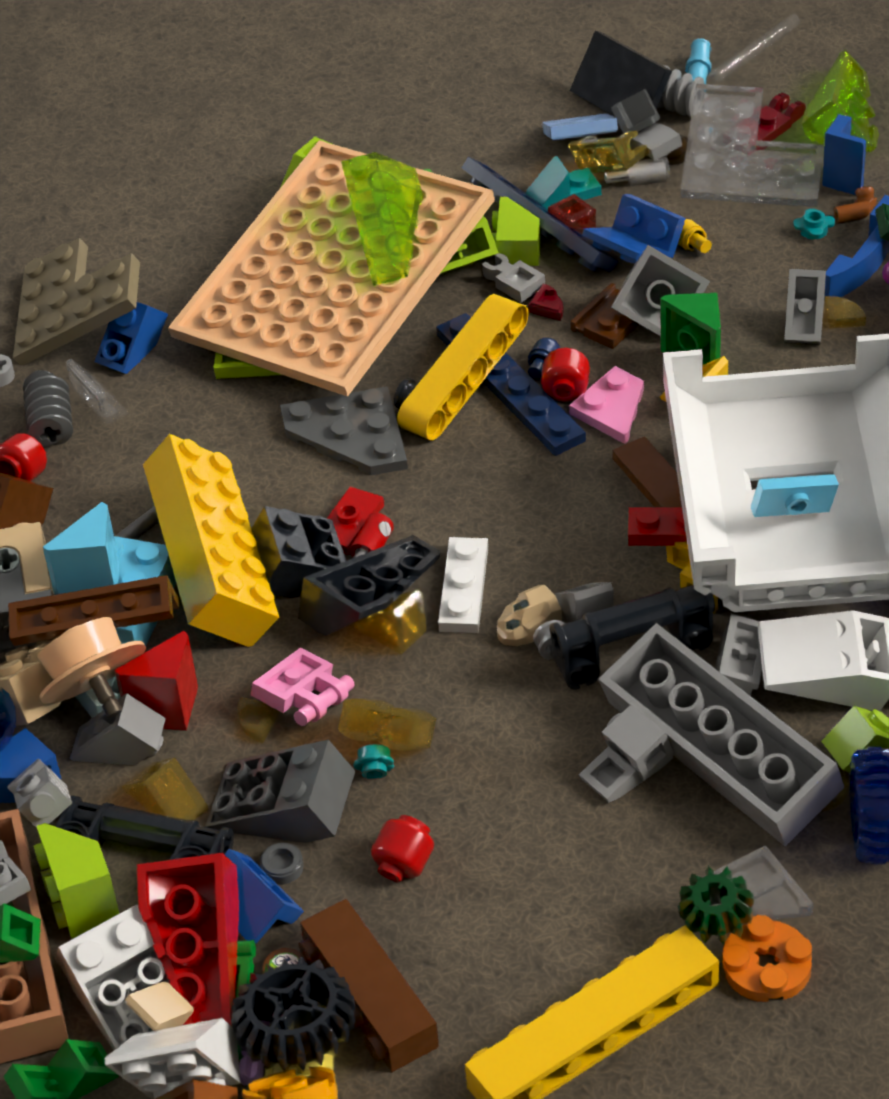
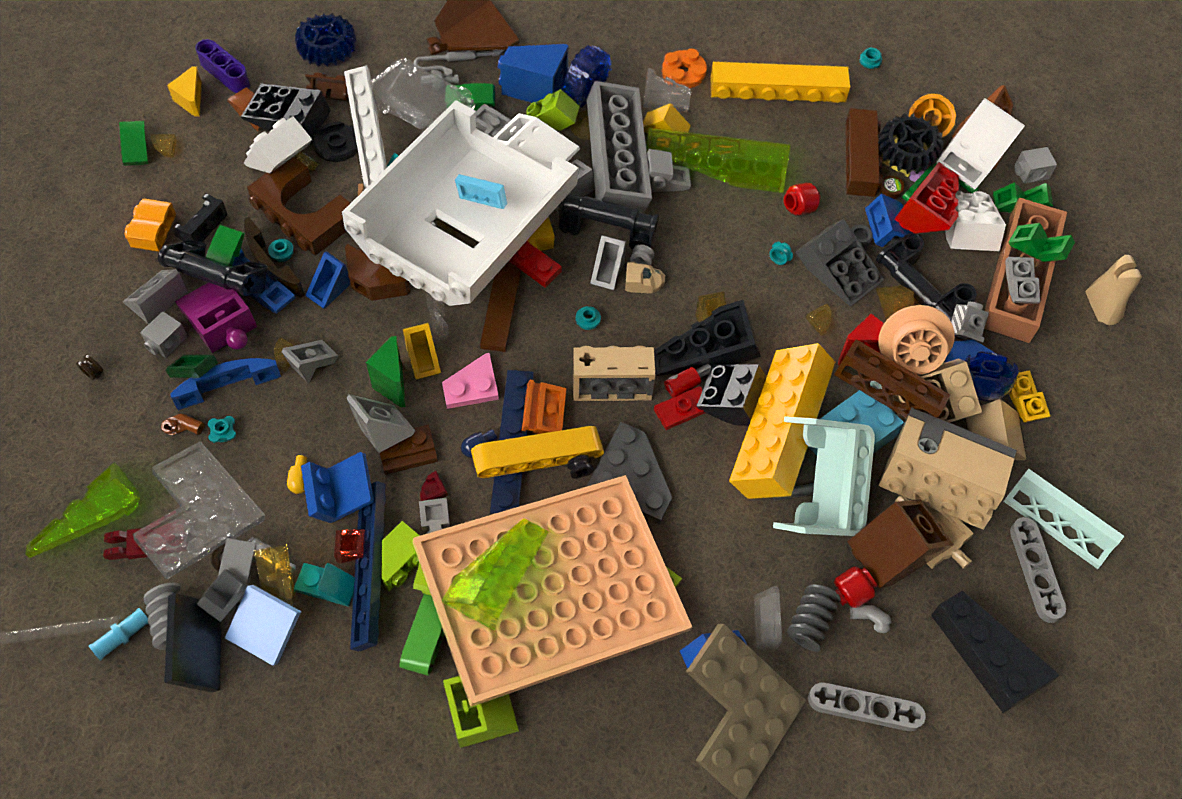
camera: 150 degrees left, 15 degrees up
(76, 879) = (975, 262): lime slope -> none
(84, 554) = (884, 406): medium azure slope -> none
(126, 475) = (840, 478): none -> light aqua windscreen
(160, 1006) = (970, 179): tan slope -> none
(292, 685) = (792, 315): bright pink plate -> none
(387, 724) = (764, 256): clear yellow brick -> none
(452, 472) = (613, 373): none -> tan piece
(463, 585) = (656, 322): white plate -> none
(502, 417) = (543, 408): none -> orange plate
(541, 854) = (726, 158): none -> clear neon green wedge
(551, 538) = (588, 323): none -> teal plate
(566, 371) = (483, 410): red head -> none
(700, 840) = (665, 118): none -> yellow slope
(713, 889) = (694, 79): dark green gear -> none
(843, 157) = (152, 448): blue panel -> none

